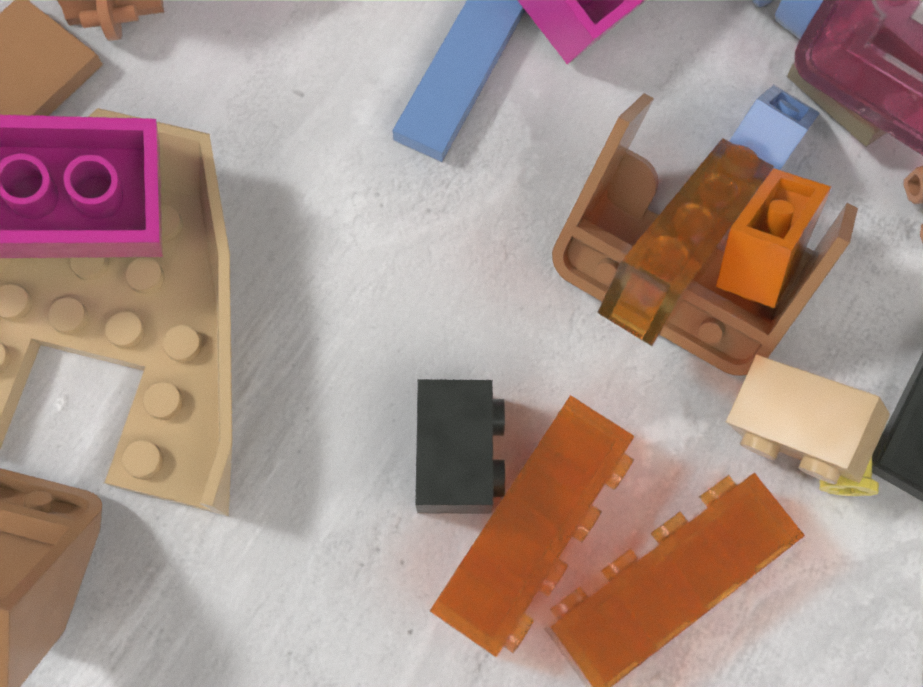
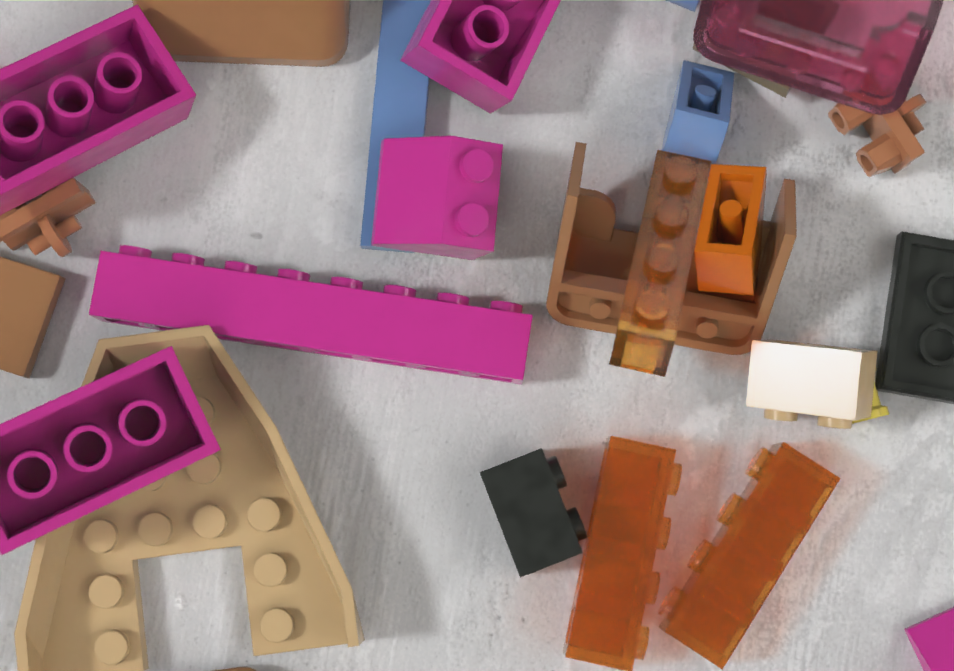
camera: 15 degrees left, 10 degrees up
(328, 181) = (313, 316): none -> dark pink brick
(486, 107) = (437, 196): none -> dark pink slope

